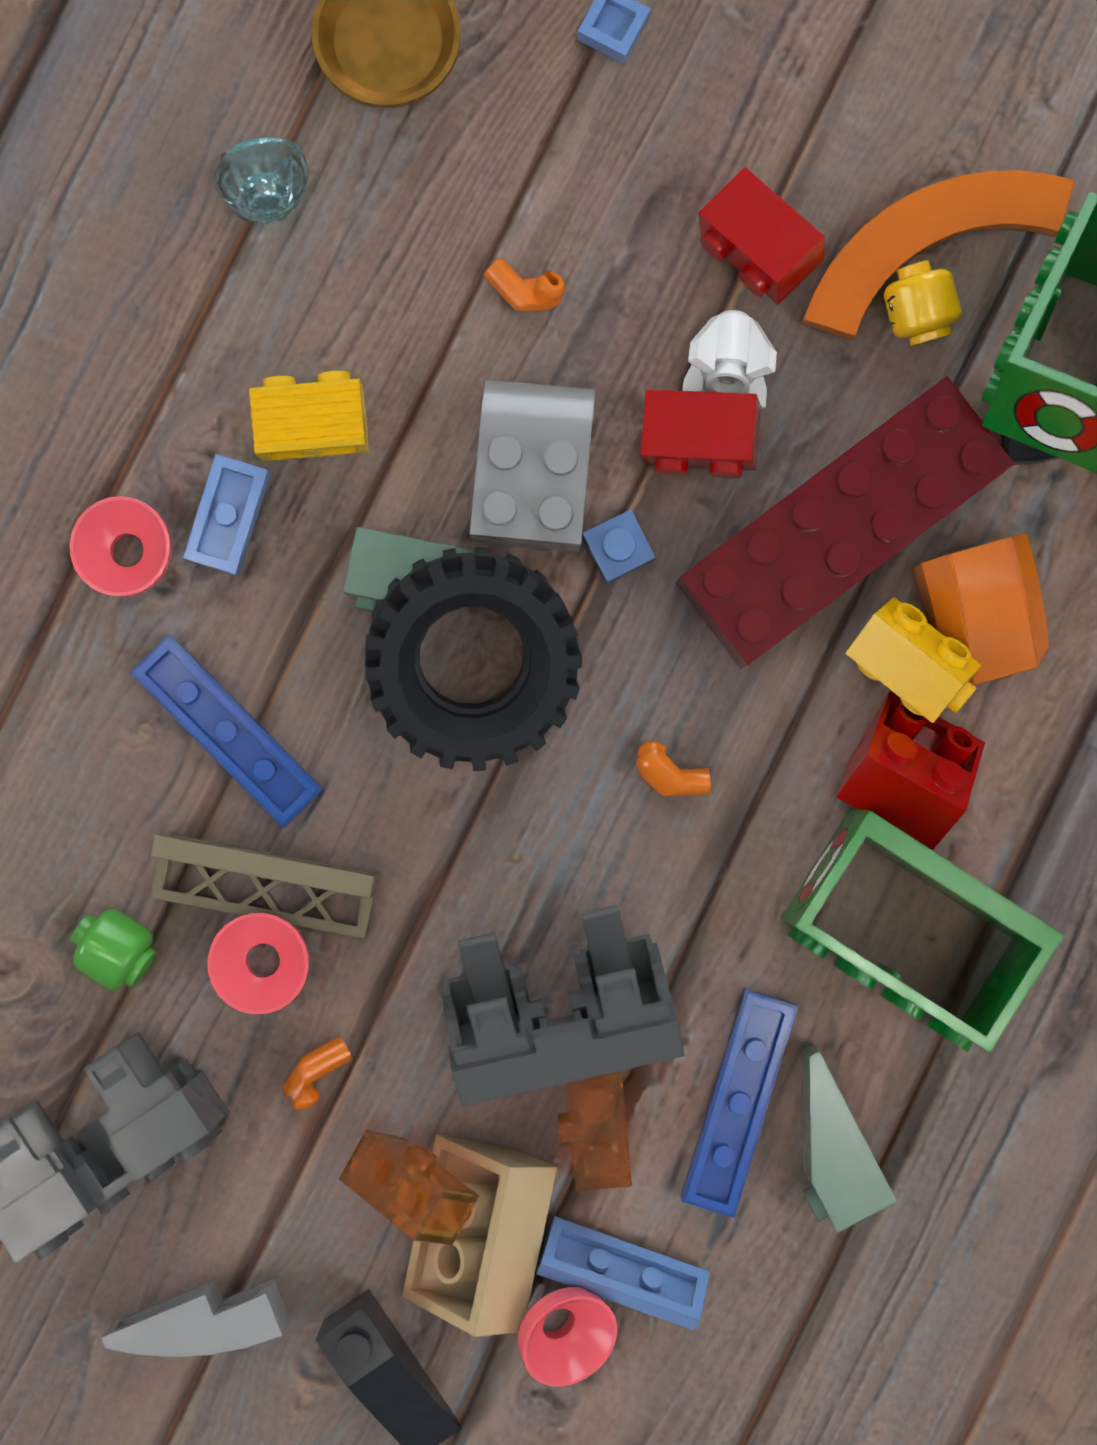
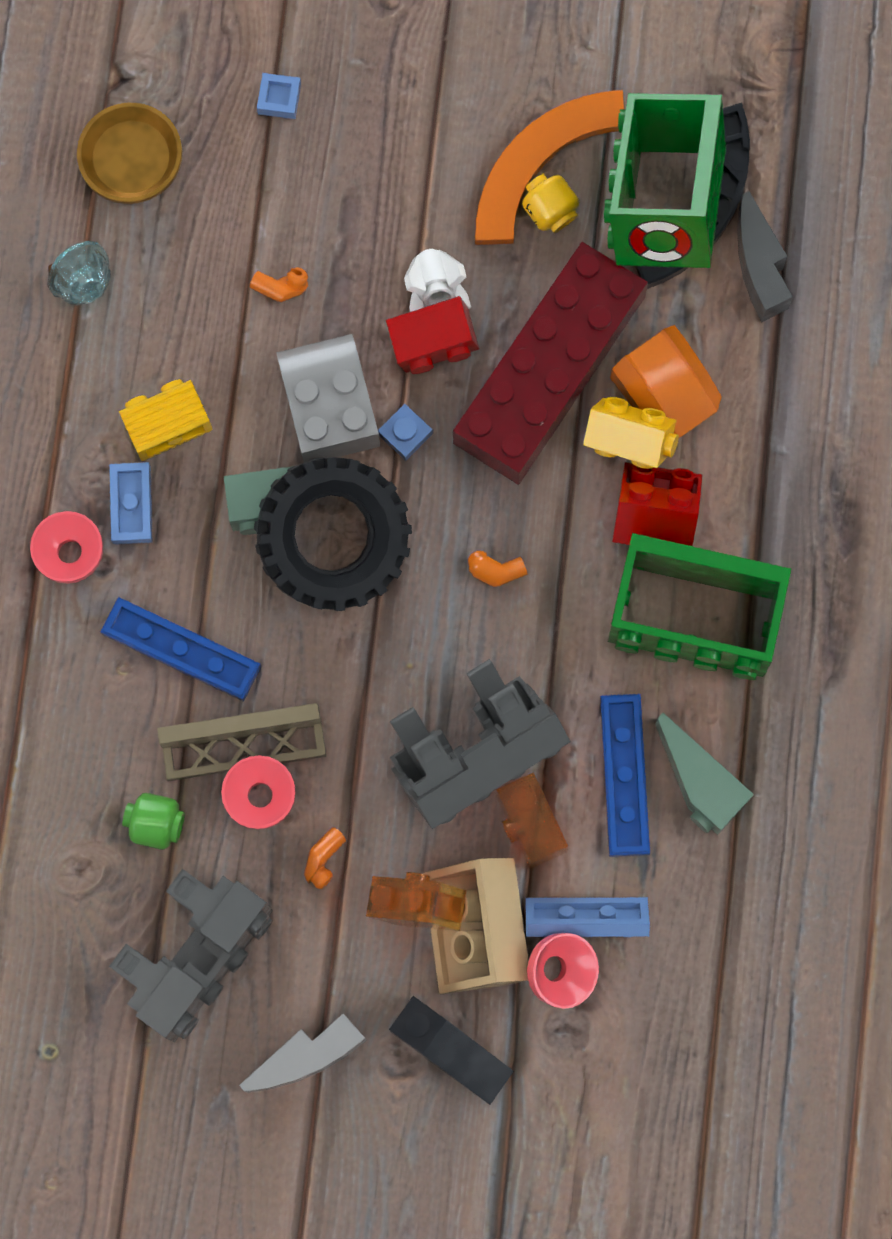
camera: 15 degrees left, 10 degrees down
(760, 237) = (426, 197): red brick -> none

